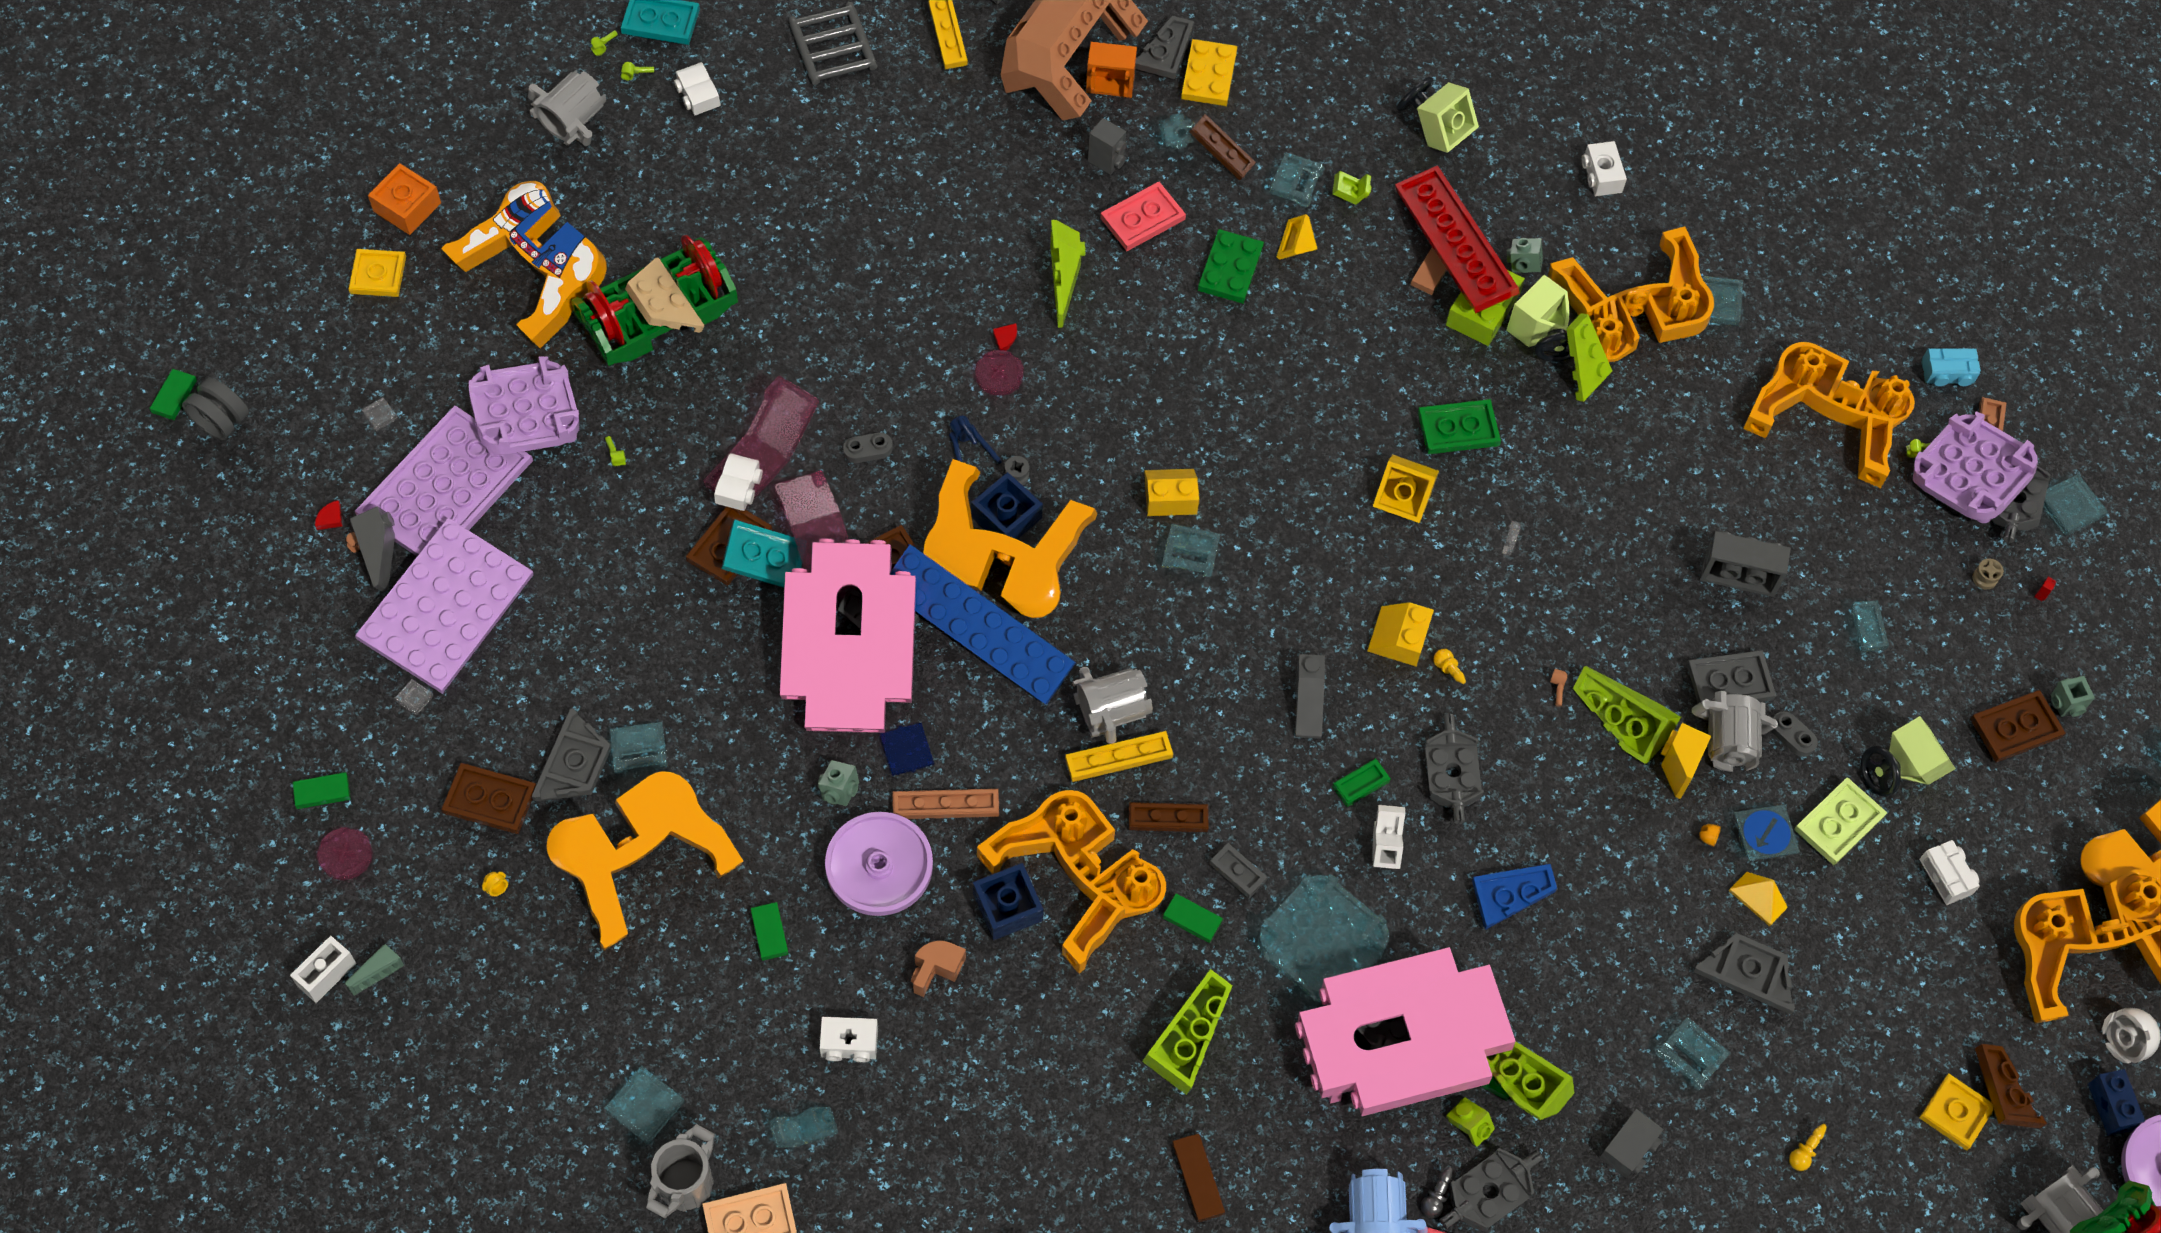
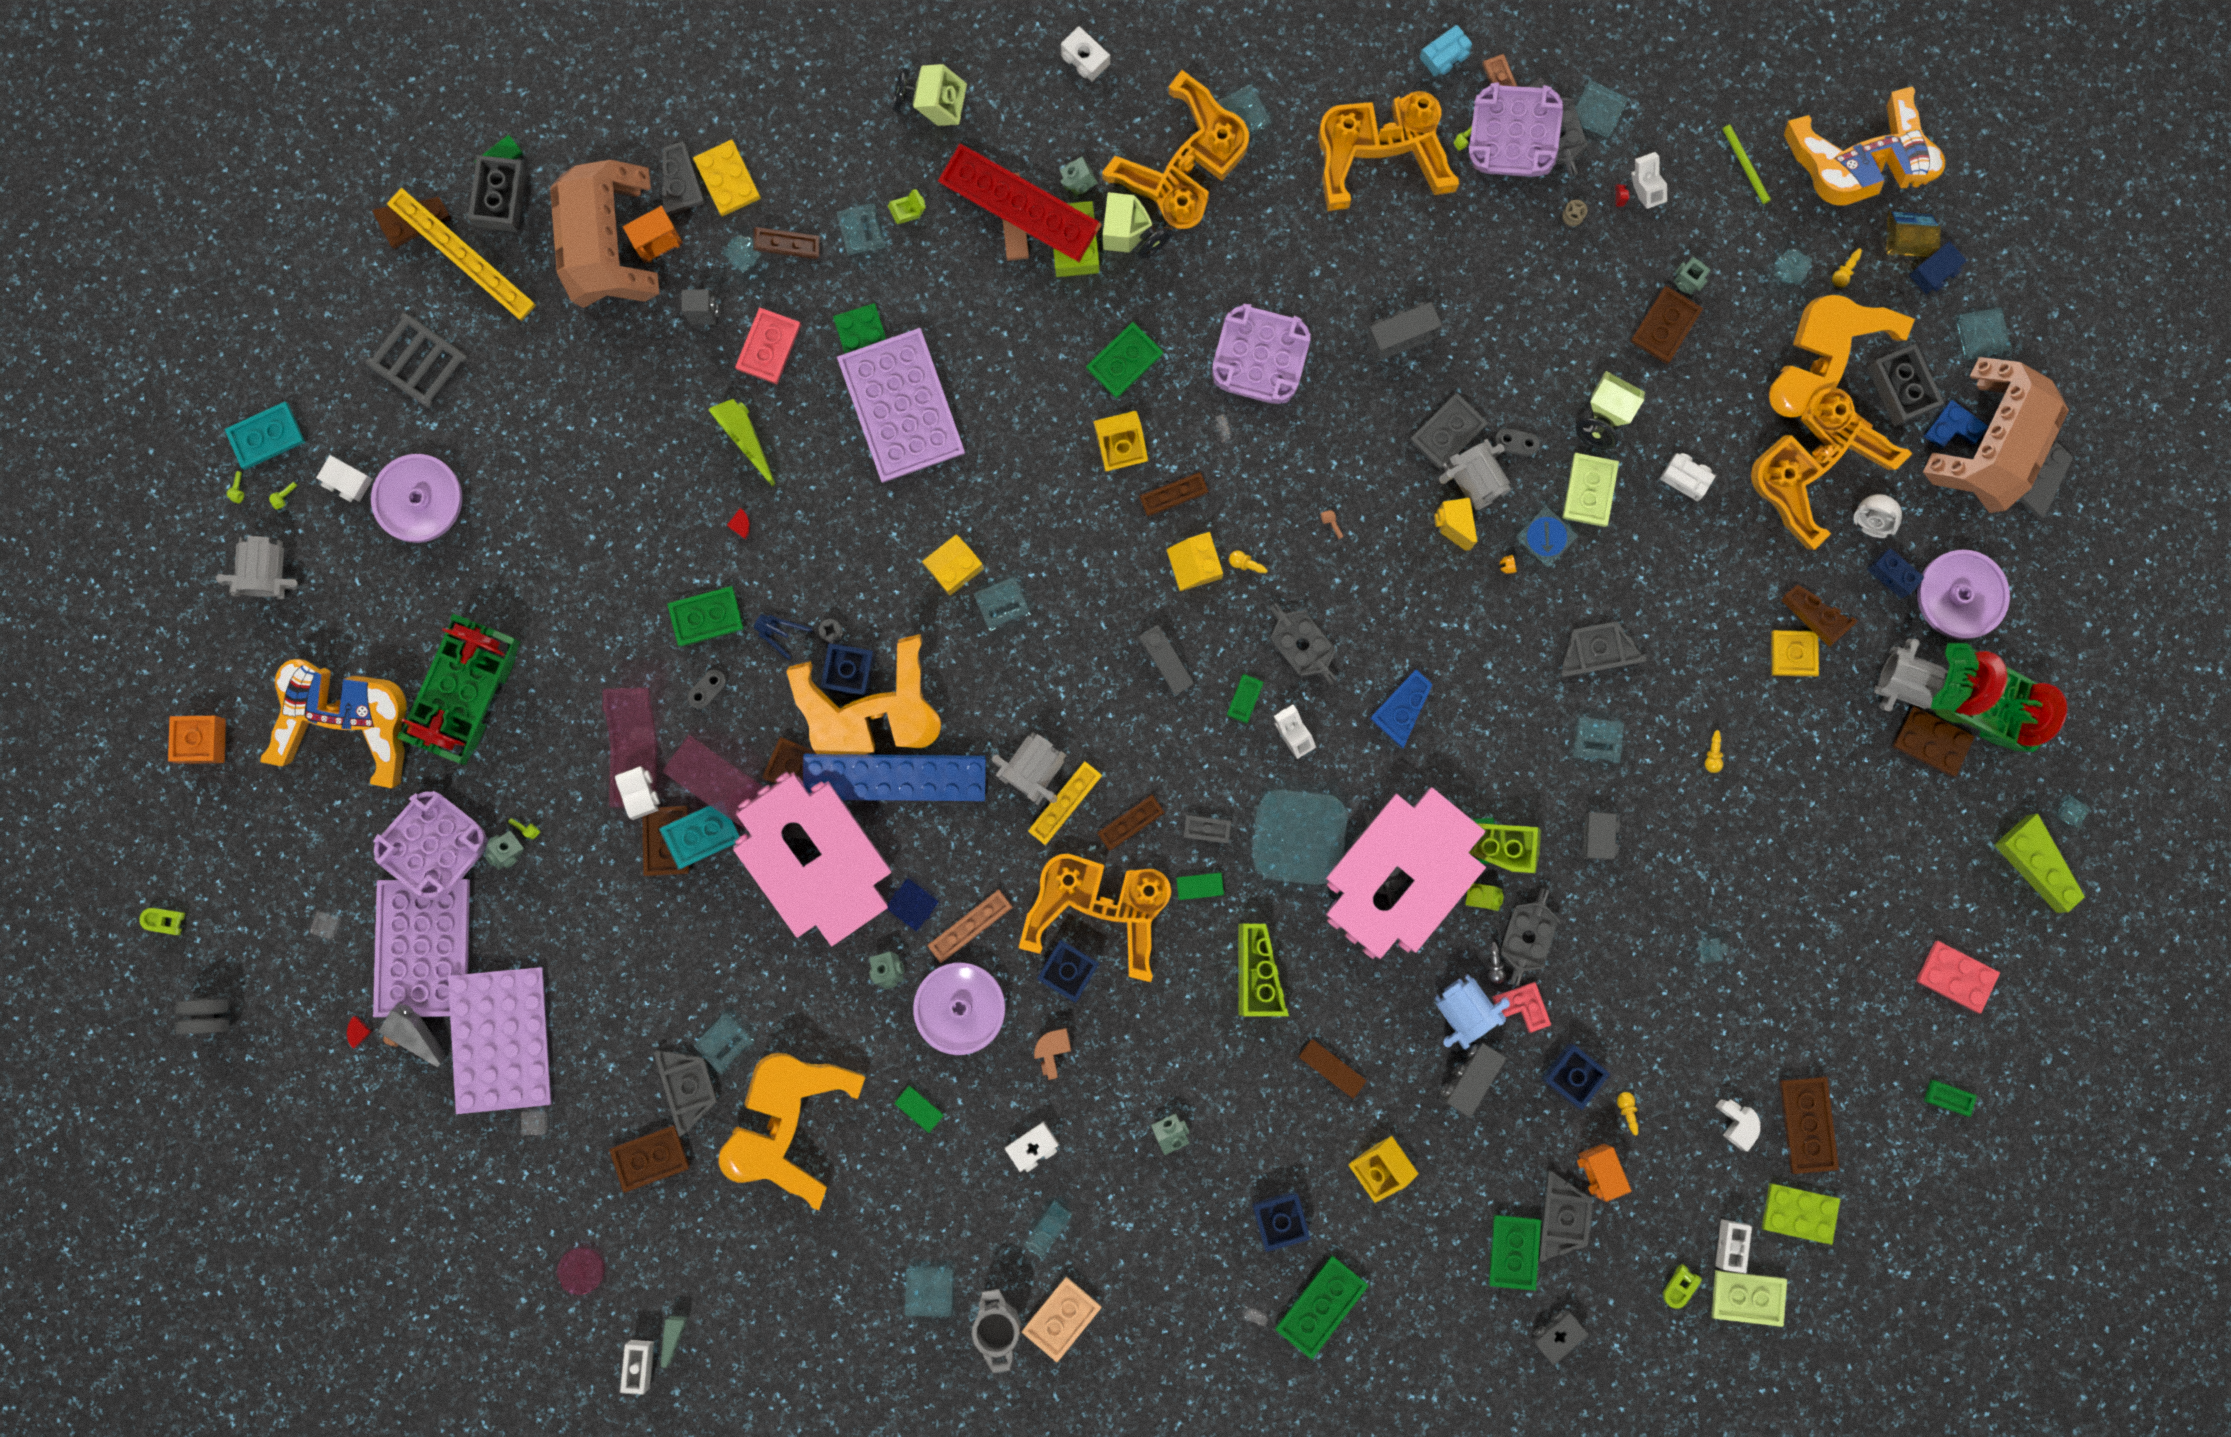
camera: 30 degrees left, 20 degrees up
(172, 394) = (157, 1022): green tile -> none
(245, 312) = (154, 920): none -> lime plate
(321, 790) = (526, 1239): green tile -> none
(377, 272) = (226, 812): yellow tile -> none
(495, 883) = (703, 1216): yellow plate -> none
(582, 453) = (503, 850): none -> sand green brick
(661, 298) = (465, 690): tan wing -> none
(745, 138) = (416, 498): none -> lavender dish
(915, 388) = (705, 616): none -> green plate
(992, 1120) = (1171, 1133): none -> sand green brick
(999, 372) = (757, 557): clear pink tile -> none
(1224, 332) = (901, 405): none -> lavender plate
(1297, 238) = (897, 282): yellow slope -> none
(1423, 565) = (1173, 494): none -> reddish brown tile
(1589, 357) = (1182, 236): lime wing -> none
(1592, 501) = (1260, 354): none -> lavender plate
(1632, 718) = (1399, 511): lime wedge -> none
(1760, 896) = (1570, 588): yellow slope -> none
(1869, 626) = (1517, 316): clear light blue plate -> none
(2081, 588) = (1647, 181): none -> white brick

